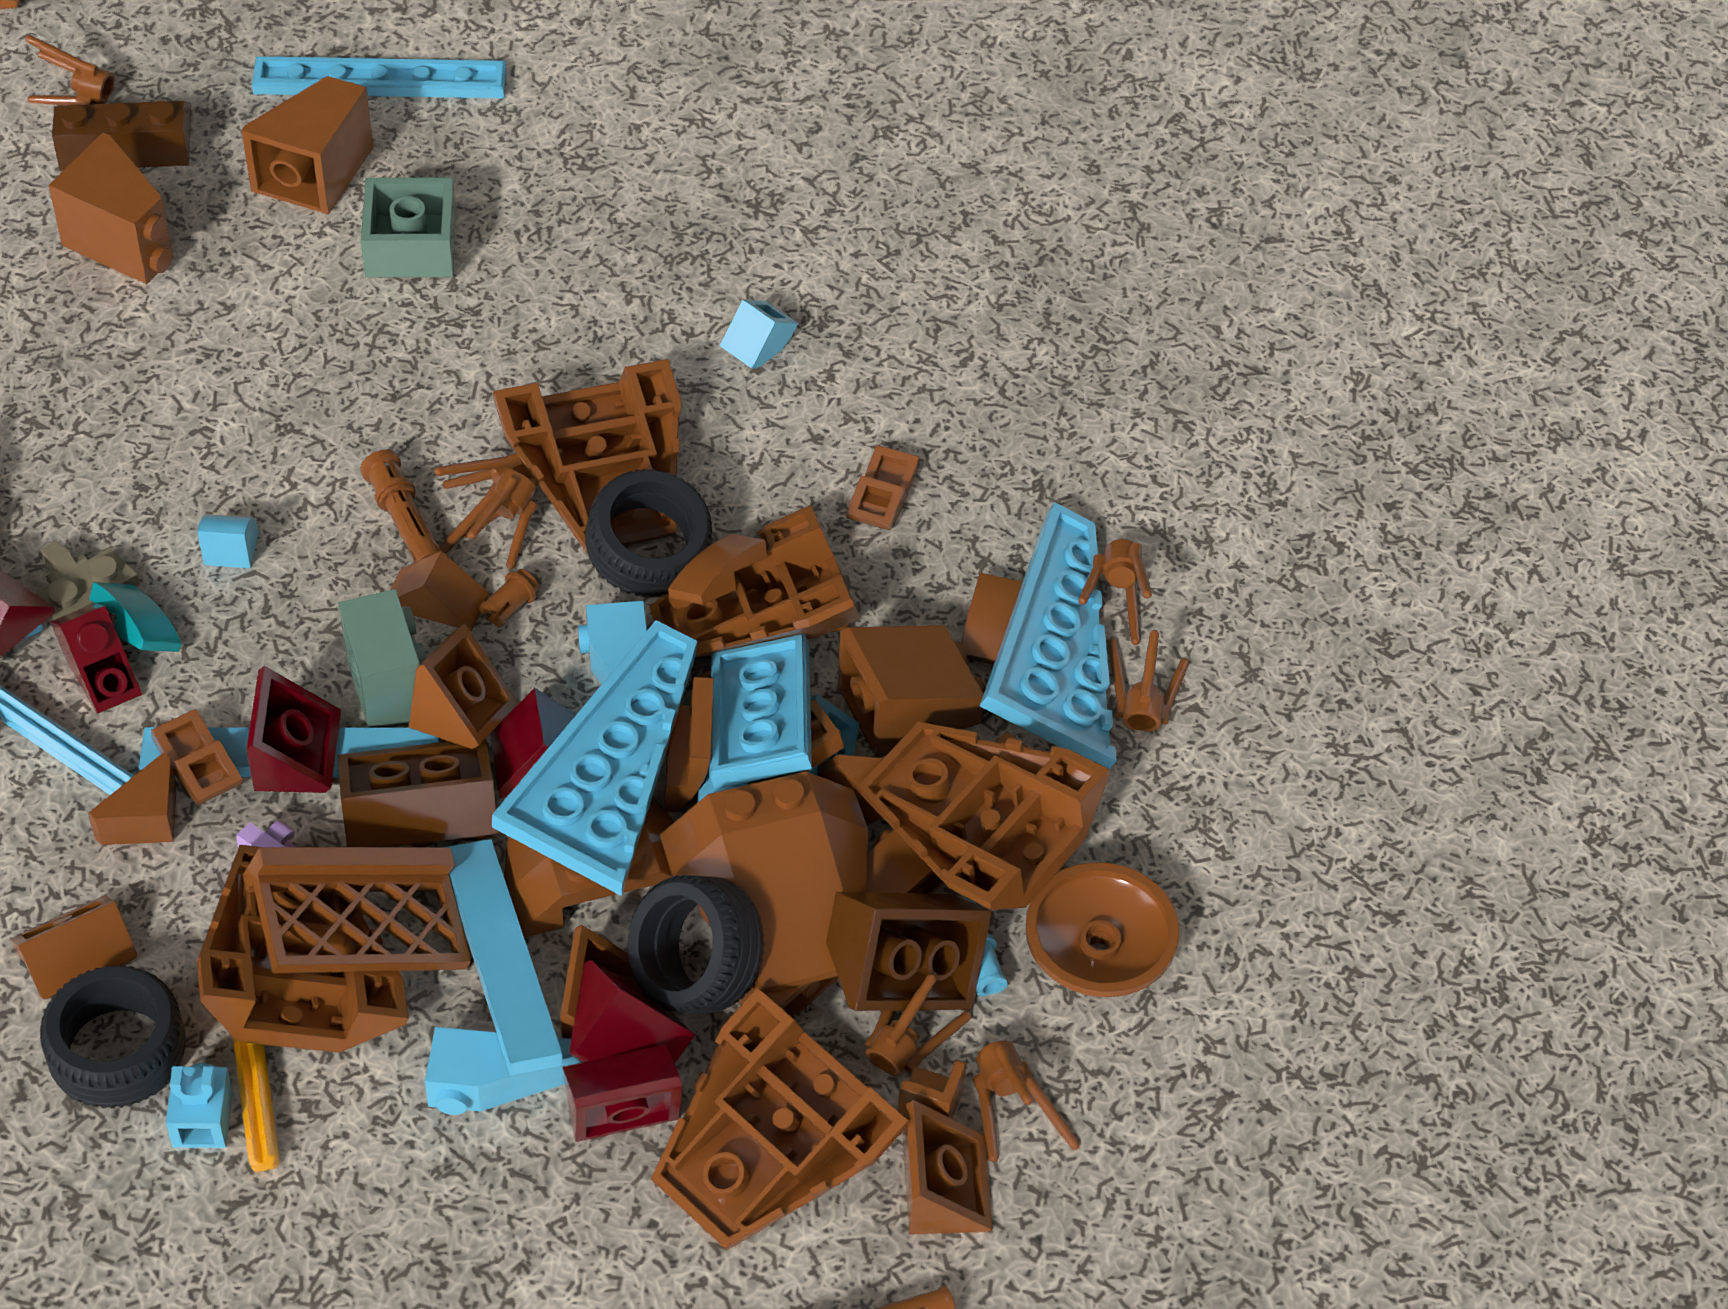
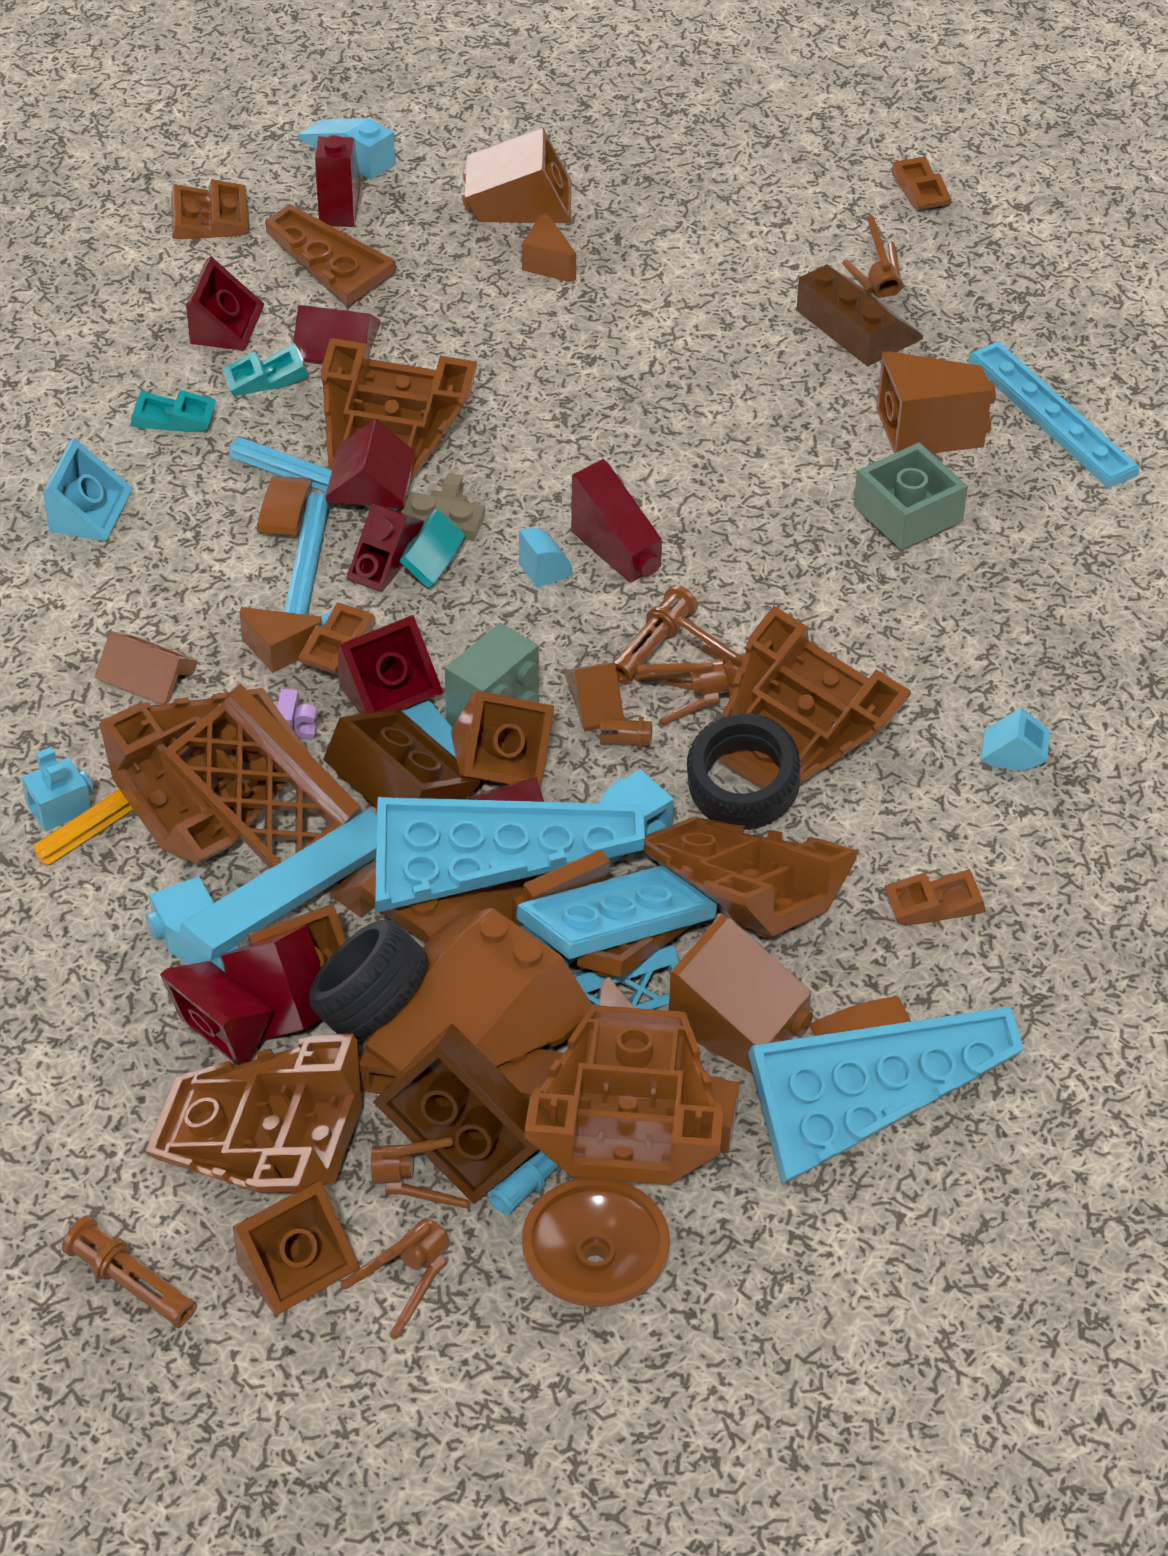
camera: 60 degrees right, 5 degrees down
(112, 212) = (767, 341): dark orange slope -> none
(123, 1079) = (70, 691): black tyre -> none
(246, 457) = (613, 523): none -> dark red slope
(713, 569) = (726, 821): dark orange slope -> none
(934, 1089) = (364, 1213): dark orange panel -> none
(1121, 567) = (986, 1087): dark orange plant -> none
(1143, 705) = (863, 1170): dark orange plant -> none

